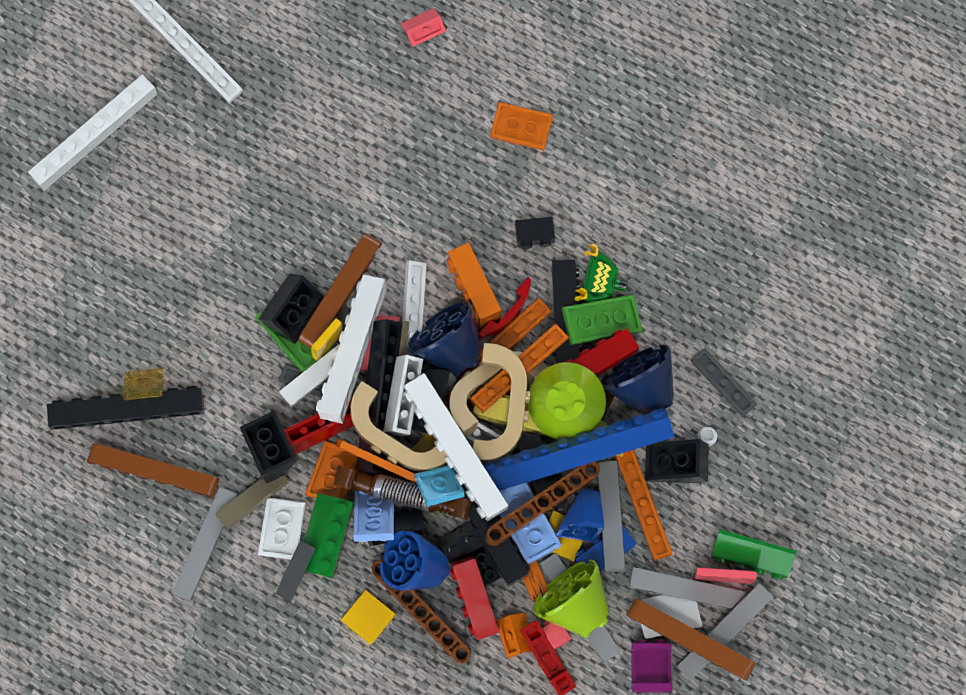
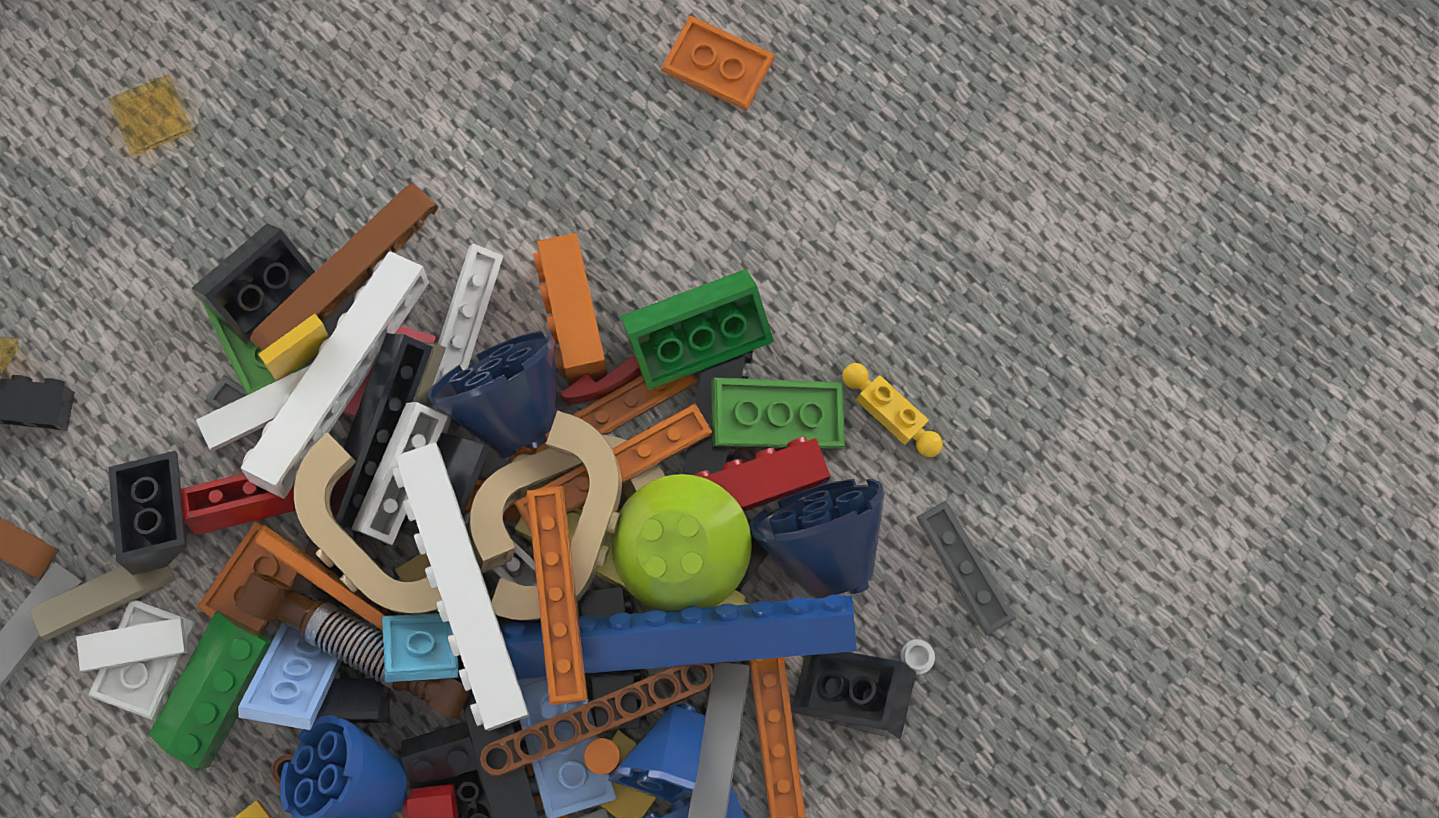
camera: 10 degrees right, 0 degrees up
(203, 224) = (150, 115): none -> clear yellow tile
(275, 521) = (131, 644): none -> white tile
(295, 571) = (141, 741): dark grey tile -> none
(507, 441) = (557, 595): none -> orange tile
(534, 232) = (698, 241): black brick -> none
(547, 281) = (697, 328): none -> green slope
(549, 523) = (602, 756): none -> orange tile
(600, 278) = (796, 342): green torso -> none
(664, 304) = (892, 410): none -> yellow plate

